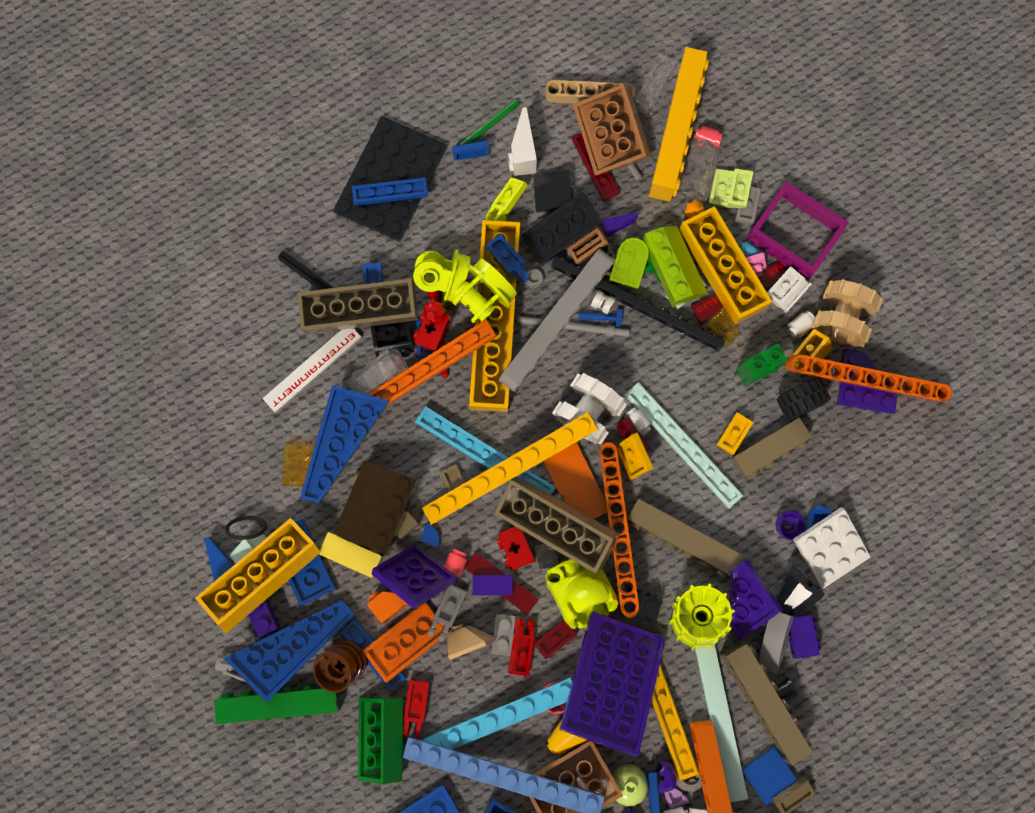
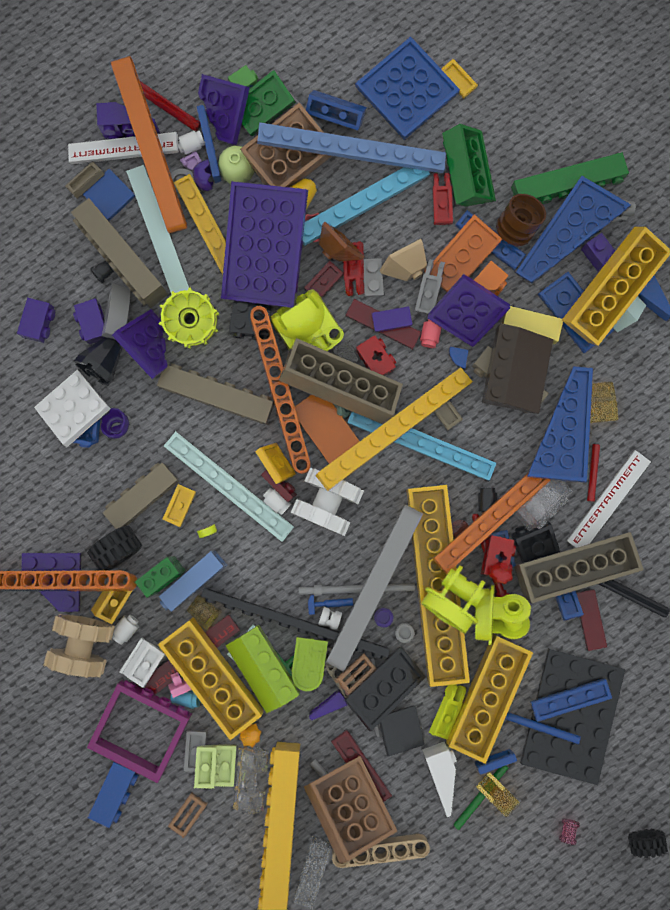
camera: 170 degrees right, 5 degrees up
(247, 537) = (641, 343): black tyre -> none
(320, 398) = (593, 472): none -> red bar
(348, 59) = (647, 843): none -> black tyre
(354, 258) = (591, 621): none -> dark red tile
(415, 81) = (569, 831): none -> clear pink bush
(424, 172) = (543, 728): none -> blue bar
(431, 388) = (486, 498): none -> black brick
(463, 366) = (458, 526): none -> tile
(466, 204) = (489, 698): none -> yellow brick
(474, 121) = (498, 795): none -> clear yellow slope
(508, 258) = (436, 644): blue hinge -> none
(534, 672) = (337, 245): none -> dark orange slope
(551, 295) = (383, 617): none -> dark purple plate
(709, 134) = (245, 822): coral brick -> none
(710, 403) = (207, 531): none -> neon yellow tile
(729, 358) = (192, 581): none -> medium blue slope
(752, 162) = (203, 804): none -> medium nougat tile
(829, 178) = (112, 795): none -> blue brick
(860, 647) = (36, 320): none -> dark purple brick

